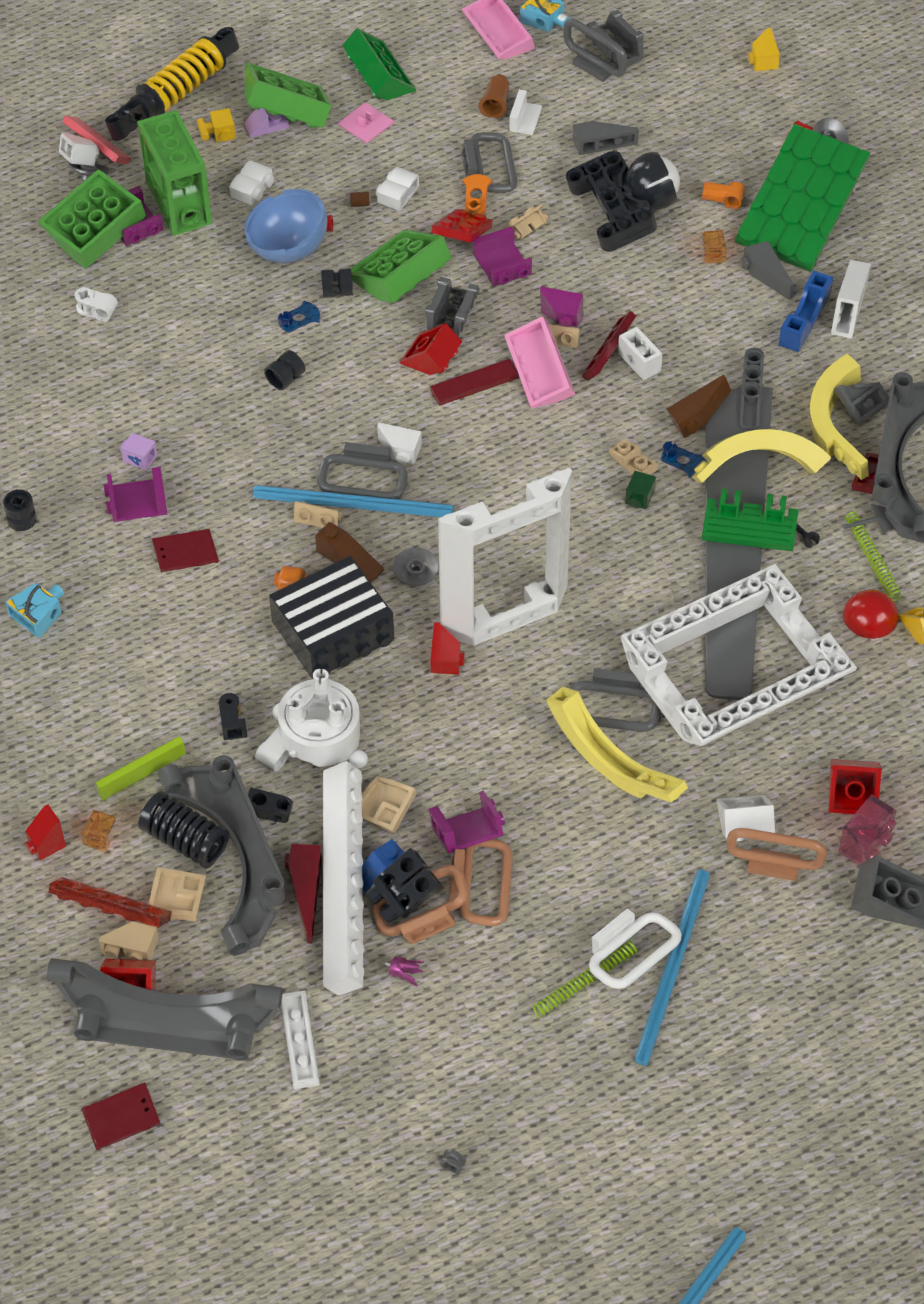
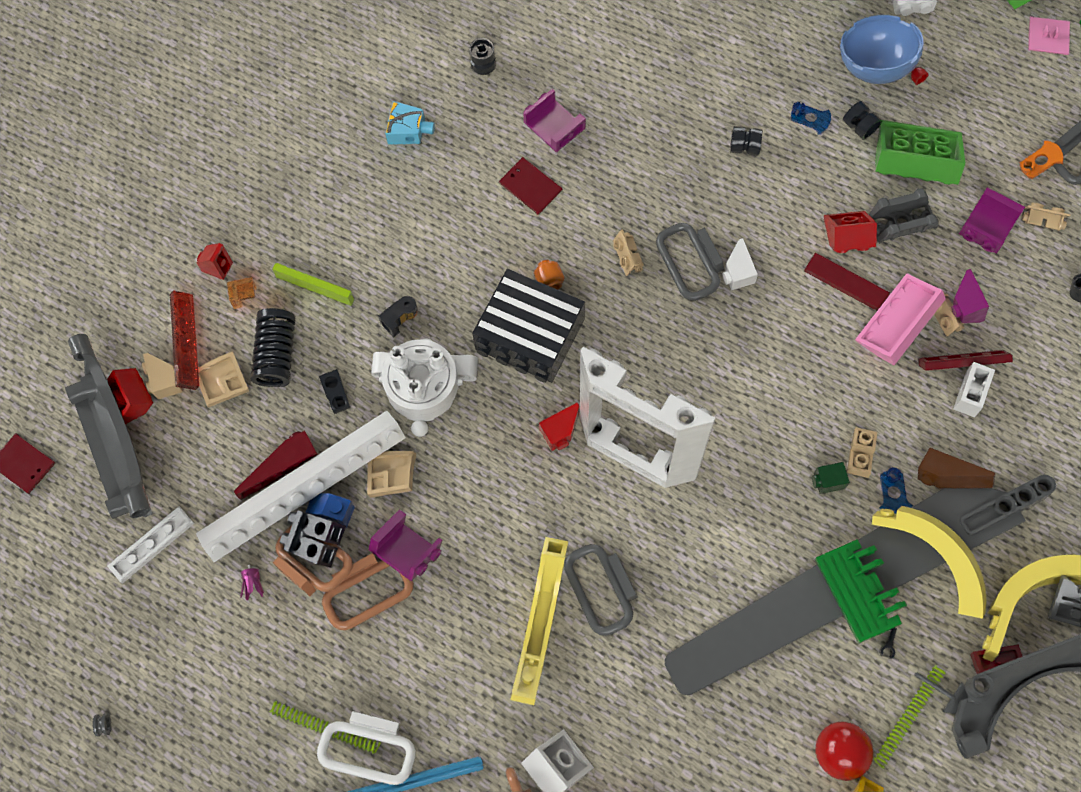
camera: 60 degrees right, 15 degrees up
(138, 451) = (594, 95): lavender brick -> none
(228, 804) = (230, 443): dark grey panel -> none
(338, 544) = (604, 299): reddish brown slope -> none
(352, 501) = (661, 272): dark azure axle -> none
(359, 199) = (963, 81): reddish brown hinge -> none
(397, 188) = (997, 101): white brick -> none
(415, 559) = (631, 346): flat silver dish -> none
(462, 225) = (994, 171): red plate -> none
(765, 588) = (799, 656): white slope -> none

